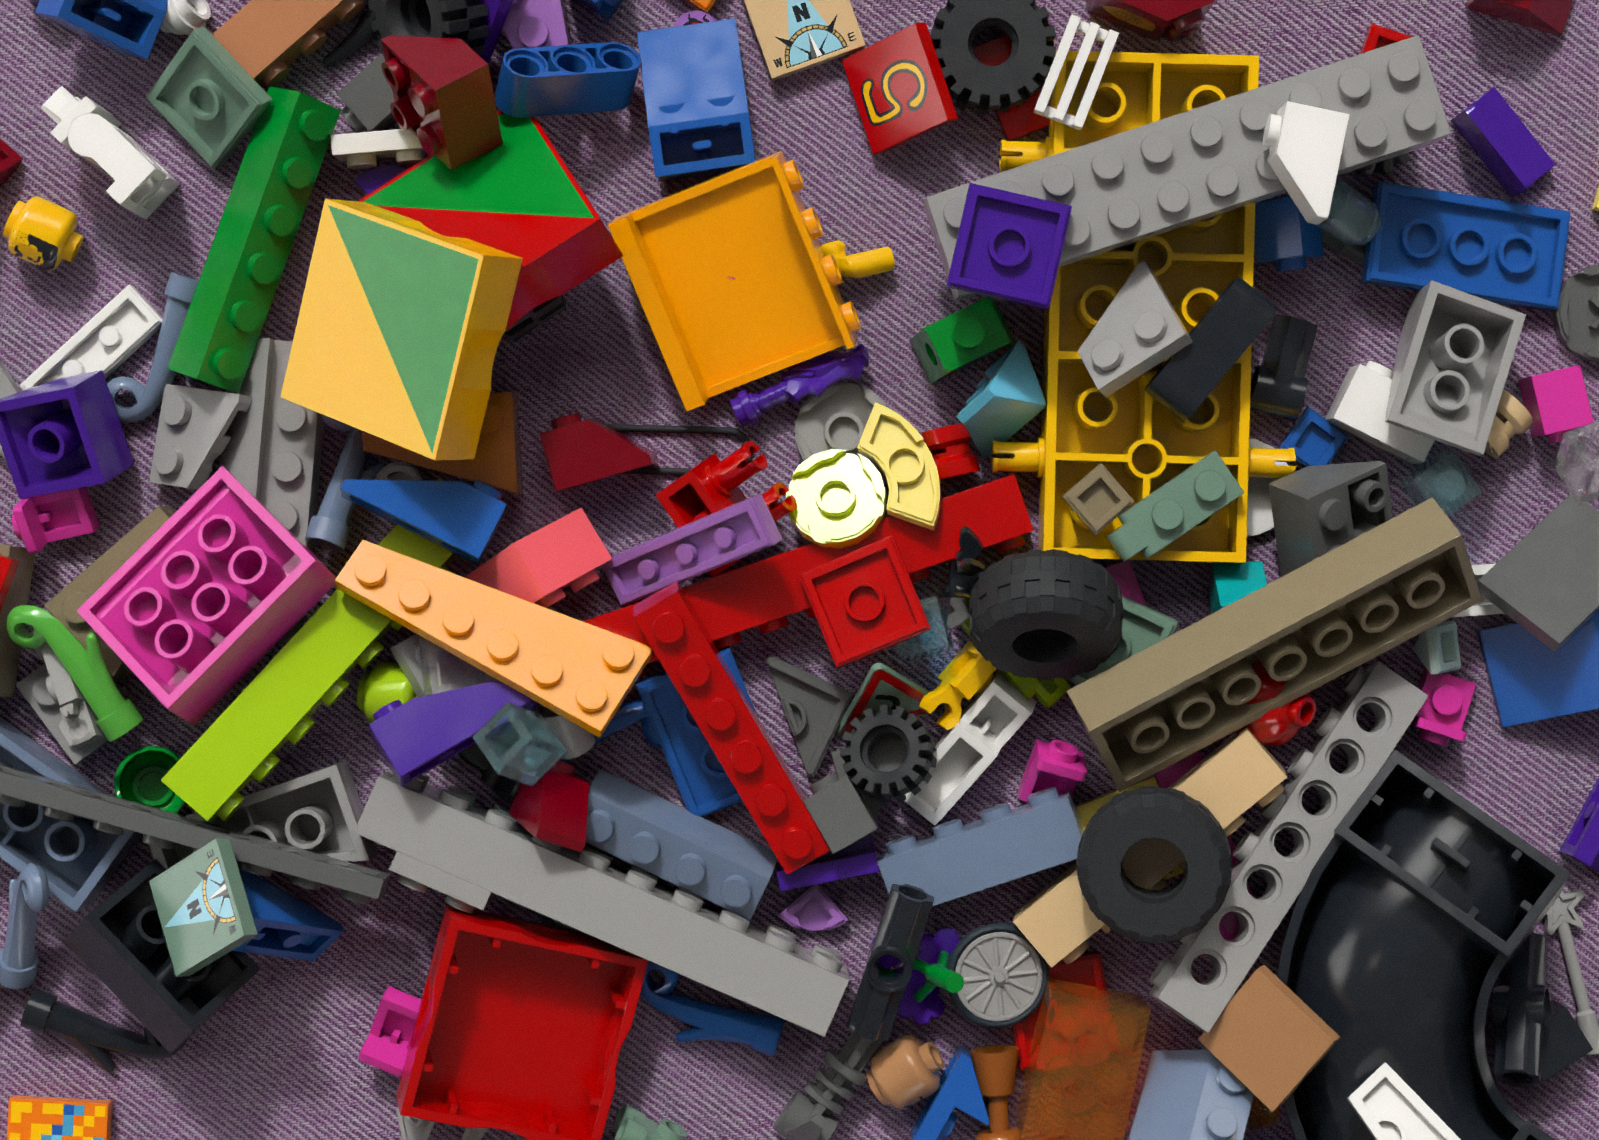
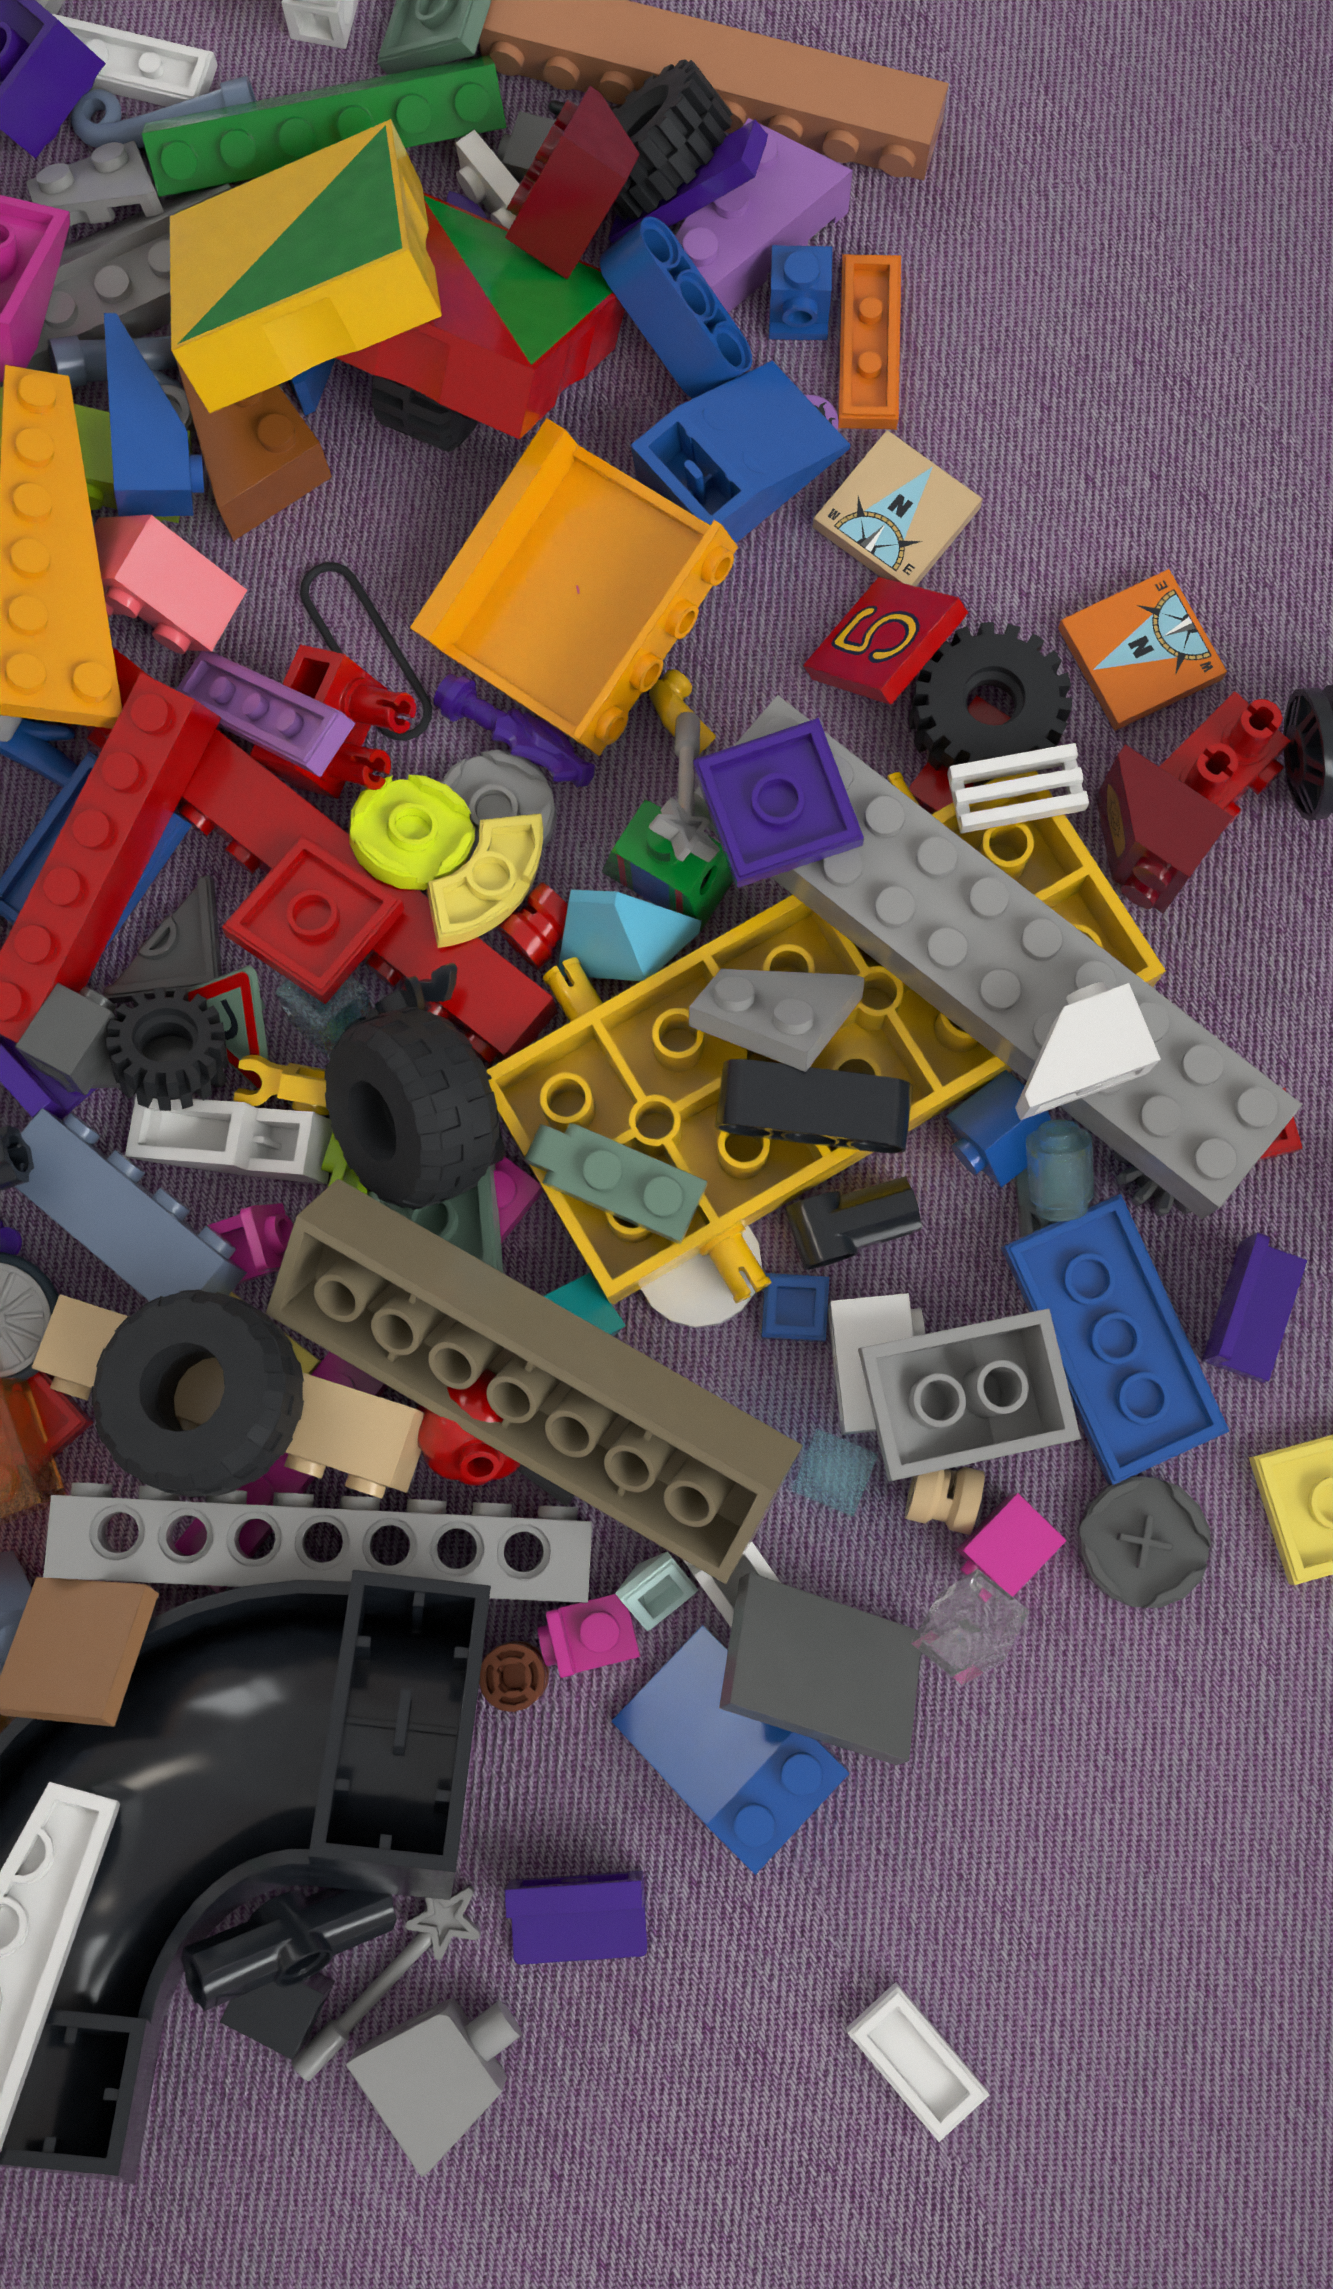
camera: 55 degrees right, 10 degrees down
(590, 452) = (310, 567): dark red slope -> none
(974, 318) = (677, 817): none -> light grey piece
(1097, 499) = (575, 1090): dark tan tile -> none
(1327, 508) = (731, 1351): dark grey slope -> none
(1433, 760) = (521, 1667): none -> copper wheel

